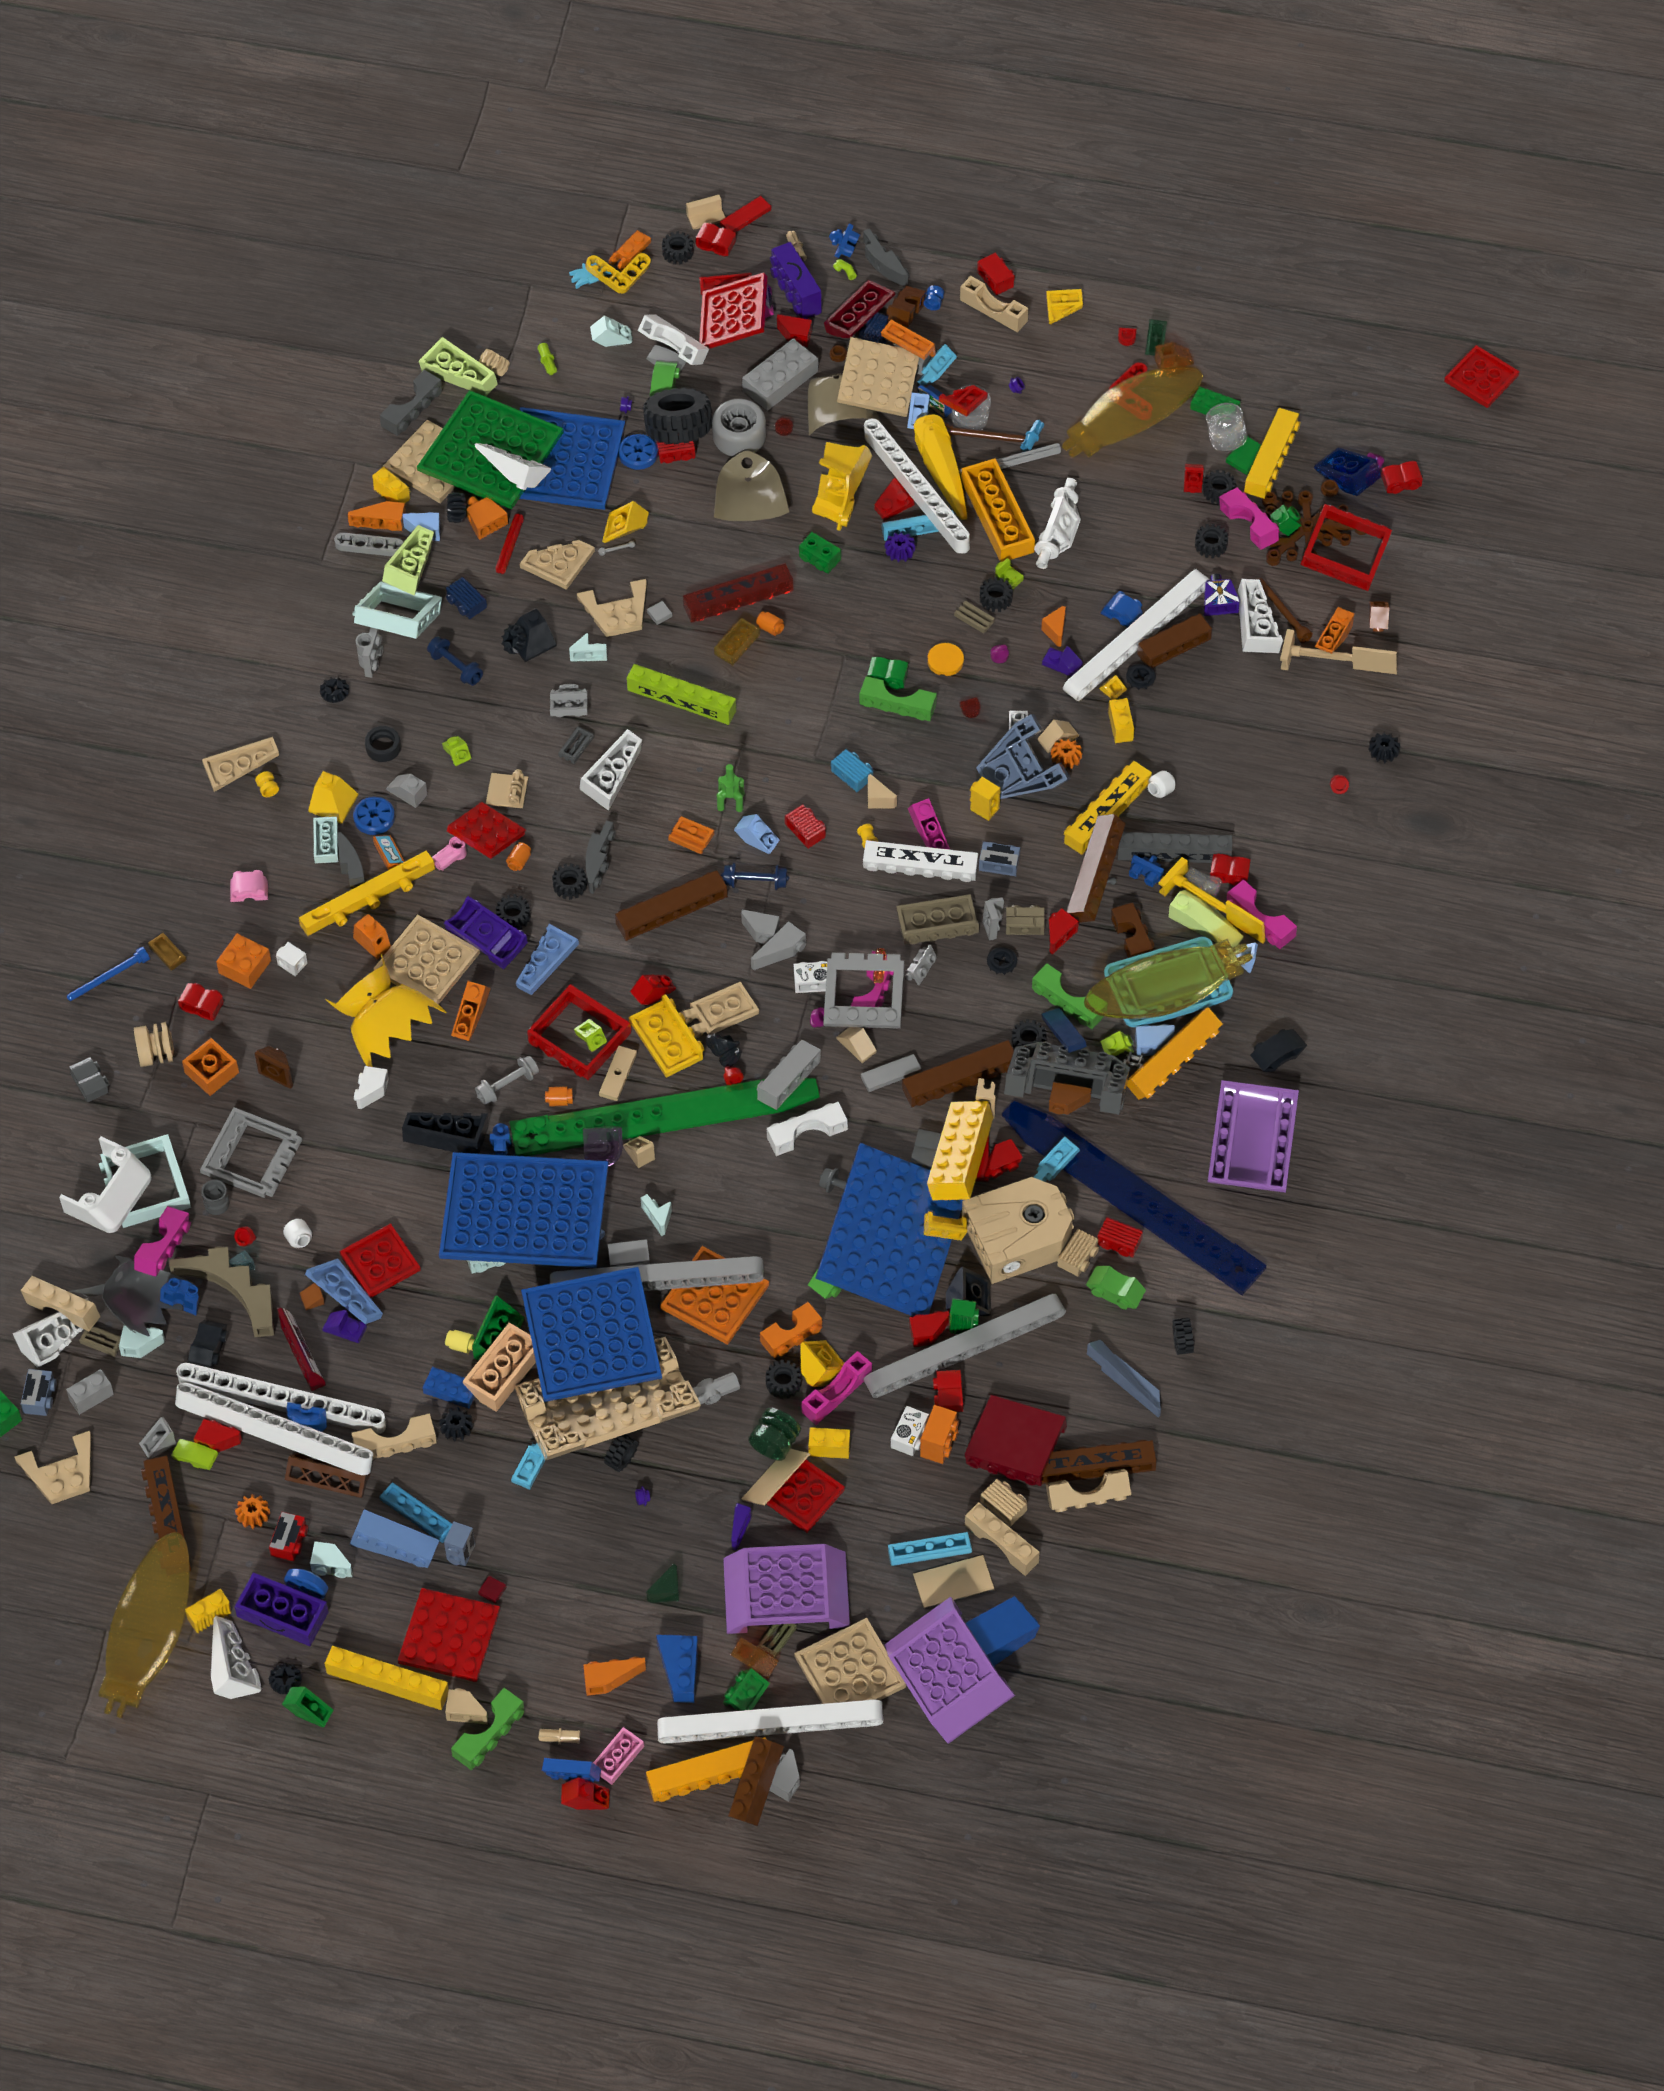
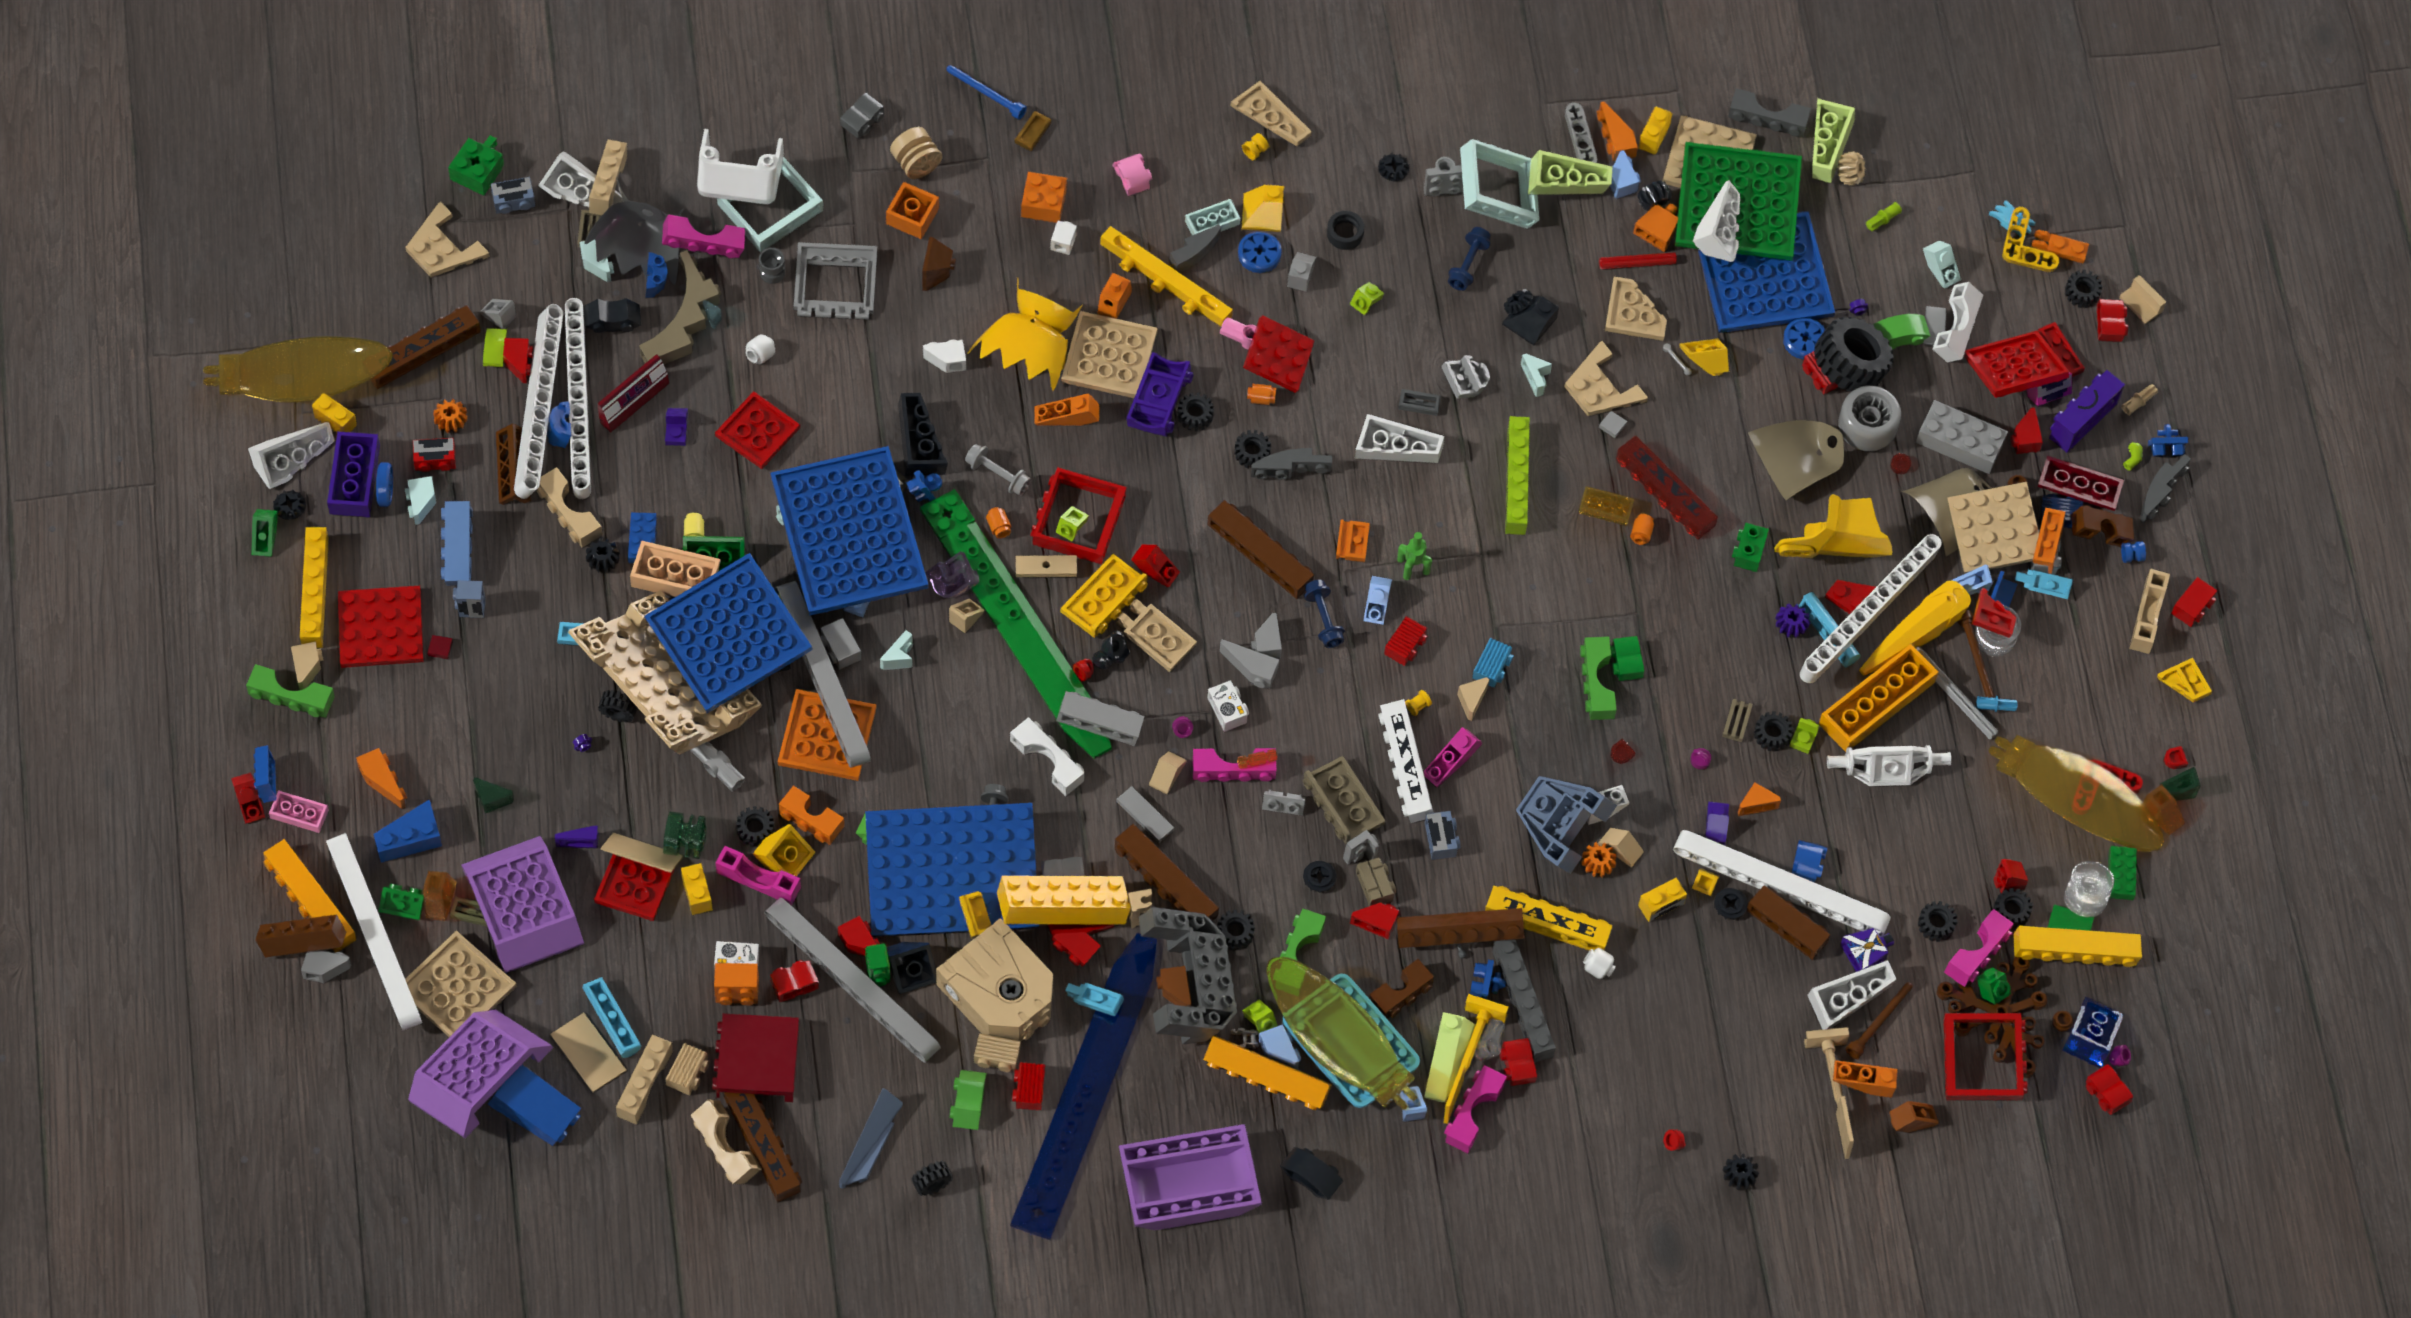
camera: 65 degrees right, 5 degrees up
(89, 1391) = (527, 237): light grey brick -> none
(201, 1001) = (985, 178): red brick -> none
(244, 1236) = (741, 306): red tile -> none
(312, 1297) = (698, 387): dark orange slope -> none
(343, 1287) = (714, 407): medium blue wing -> none
(388, 851) = (1222, 279): slope -> none
(416, 1512) = (500, 554): dark azure tile -> none
(466, 598) = (1551, 243): dark blue brick -> none
(507, 789) = (1338, 358): tan hinge -> none
(551, 952) = (1161, 461): medium blue wing -> none
(559, 1736) = (304, 756): tan axle -> none
(746, 214) = (2159, 339): red tile -> none
(864, 1016) = (1190, 761): light grey hinge -> none
(945, 659) = (1671, 709): light orange tile -> none
(985, 798) = (1504, 796): yellow brick -> none
(1016, 385) = (2055, 668): dark purple plate -> none
(1064, 1030) = (1249, 956): dark blue tile -> none
(1481, 376) = (2288, 1135): red plate -> none

